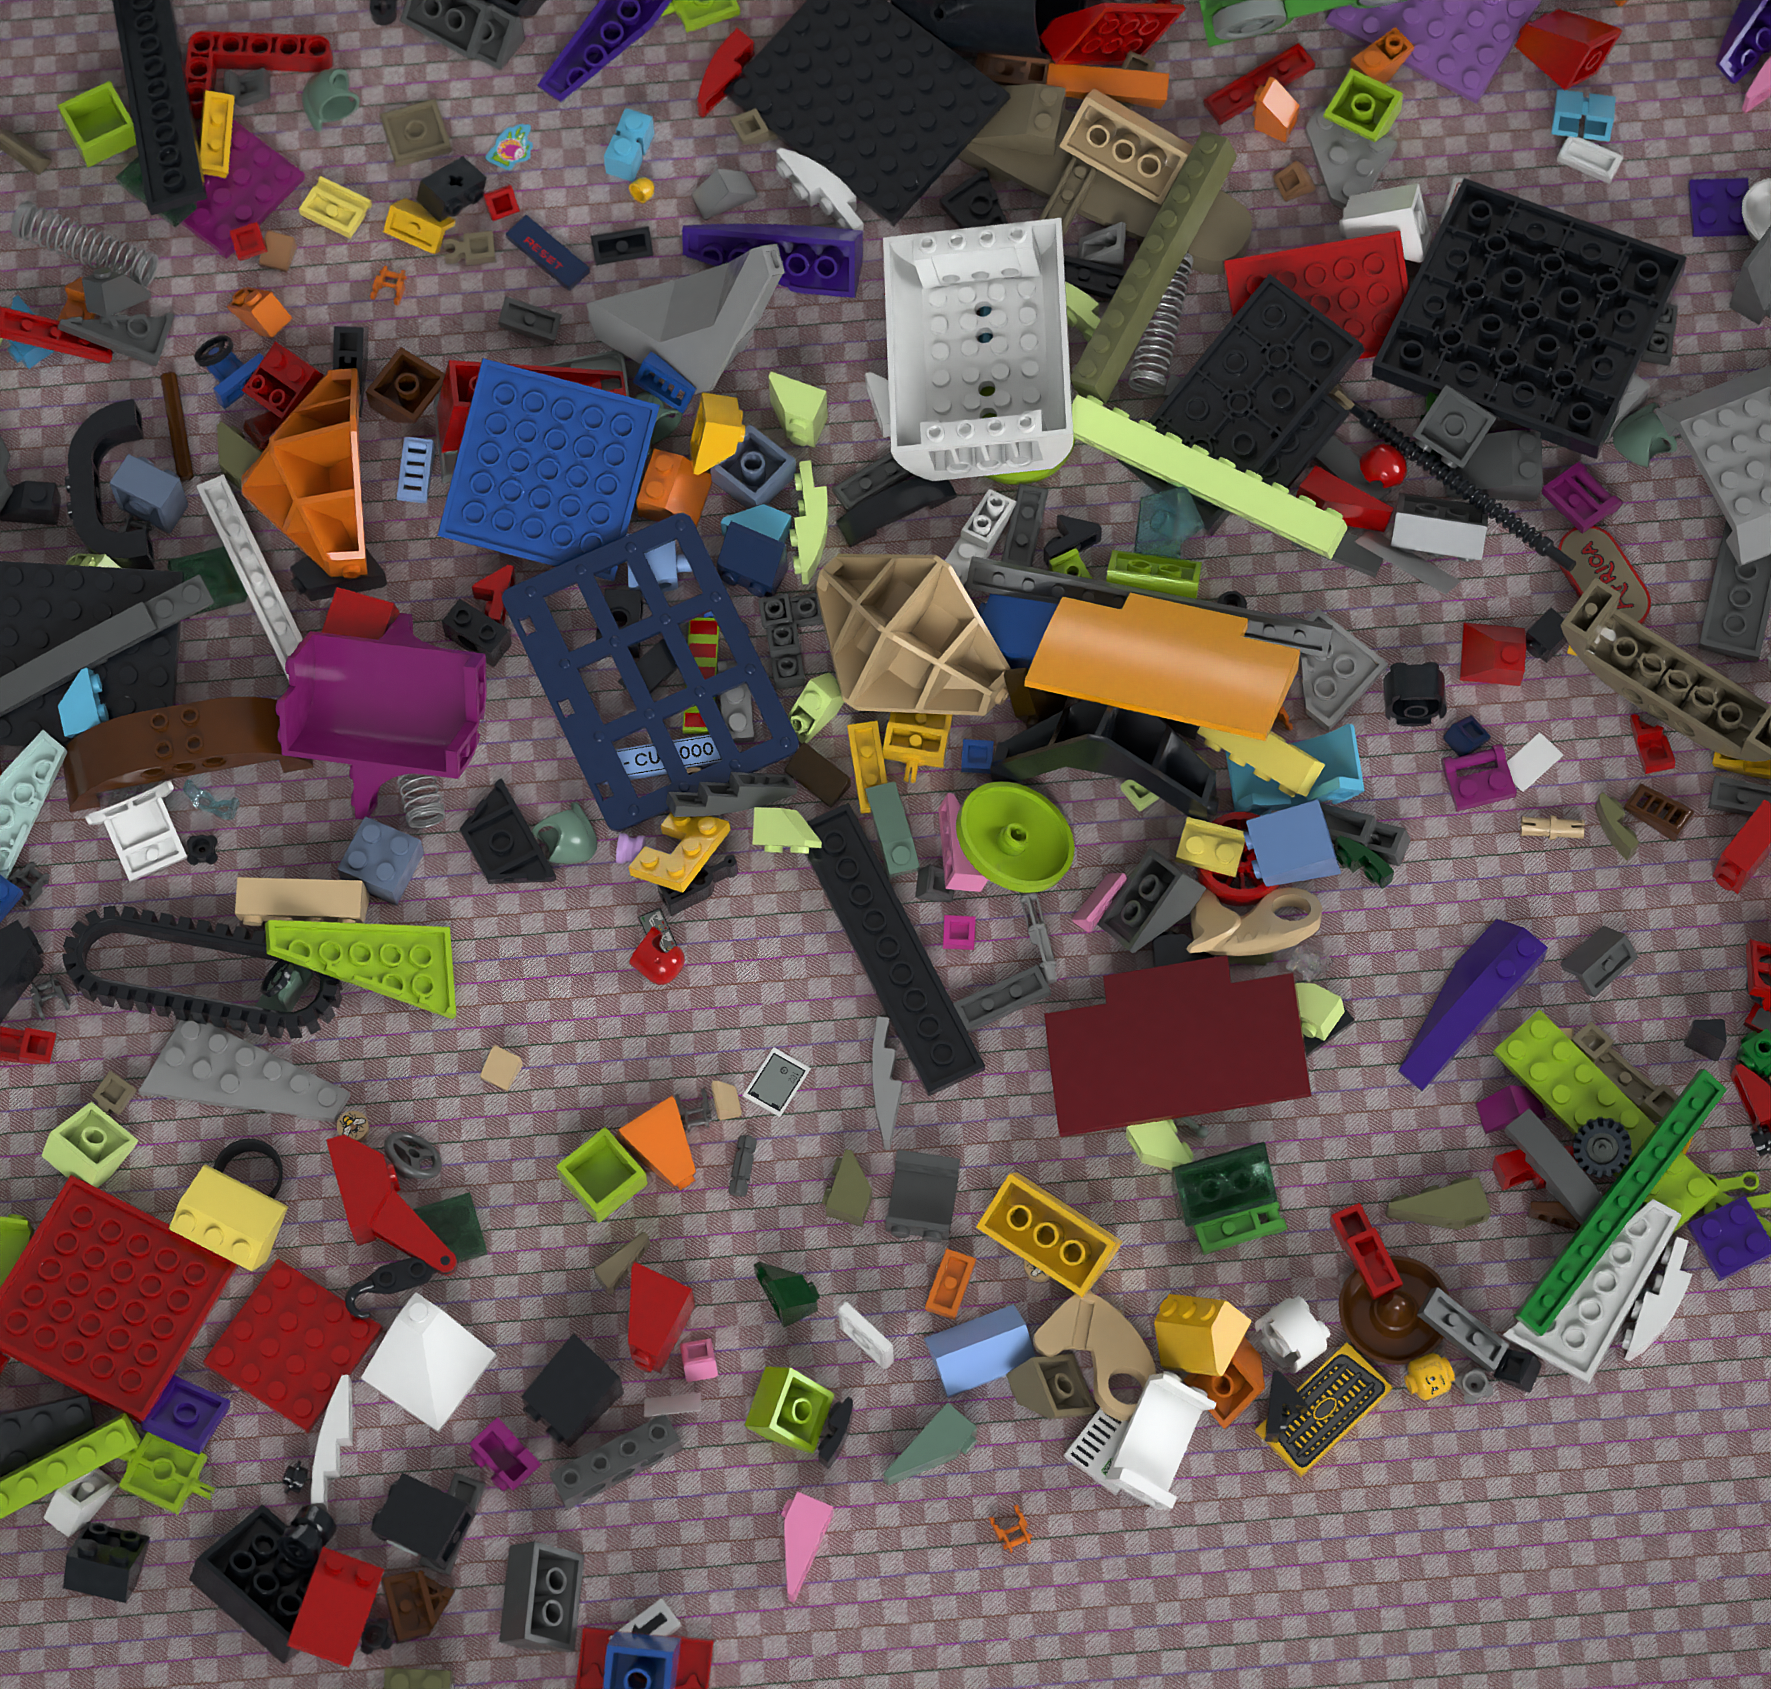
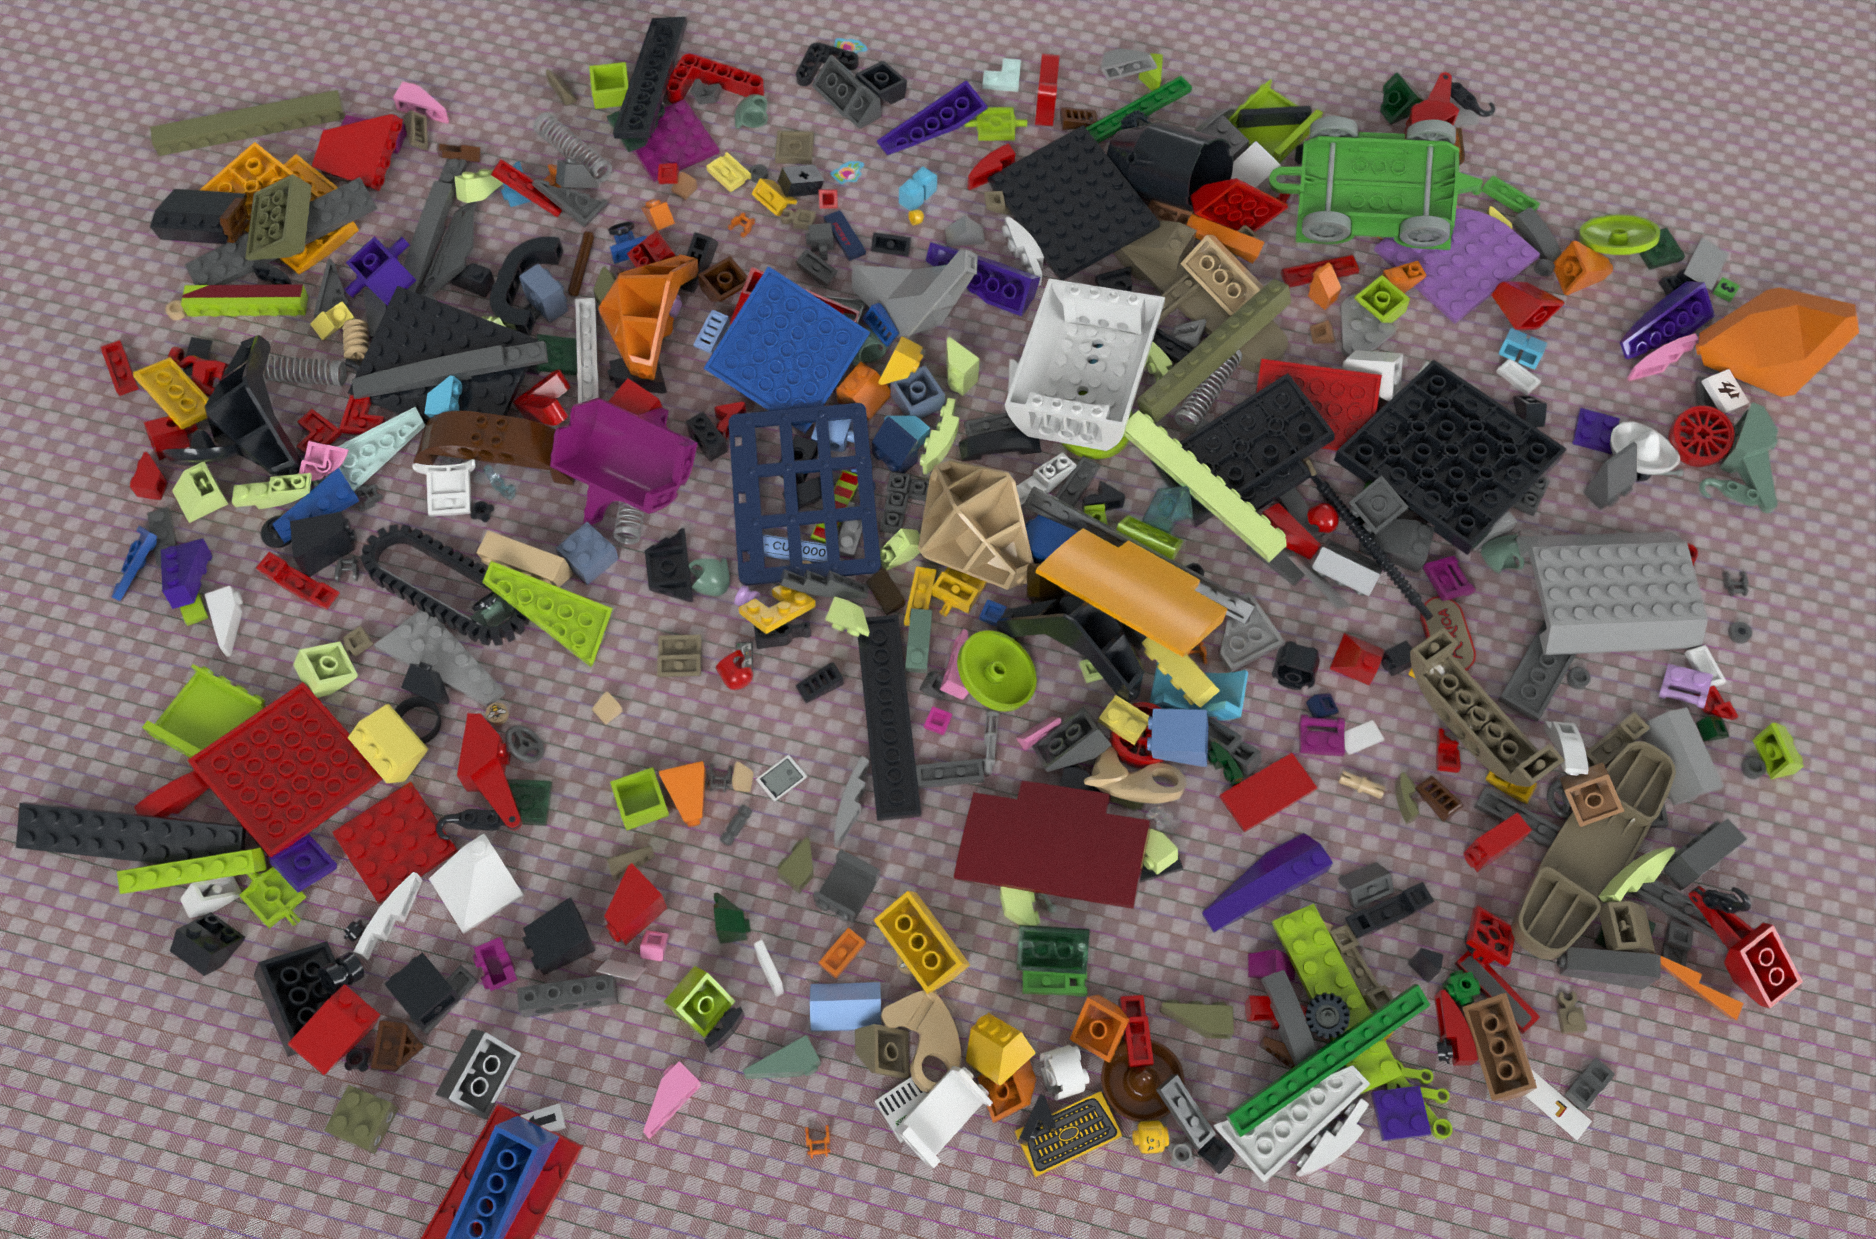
camera: 15 degrees right, 5 degrees down
(214, 668) = (541, 400): none -> red beam
(216, 133) = (674, 109): yellow plate -> none
(238, 1118) = (425, 682): none -> black slope
(380, 193) = (758, 171): none -> dark grey tile
(516, 272) = (820, 239): none -> dark grey brick
(569, 962) = (679, 655): none -> dark tan slope
(802, 923) = (816, 677): none -> black slope
(1319, 1262) = (1100, 1027): none -> orange slope
(1432, 880) = (1268, 792): none -> red tile
(1620, 208) = (1531, 409): none -> black slope
(1640, 985) = (1389, 911): none -> black slope

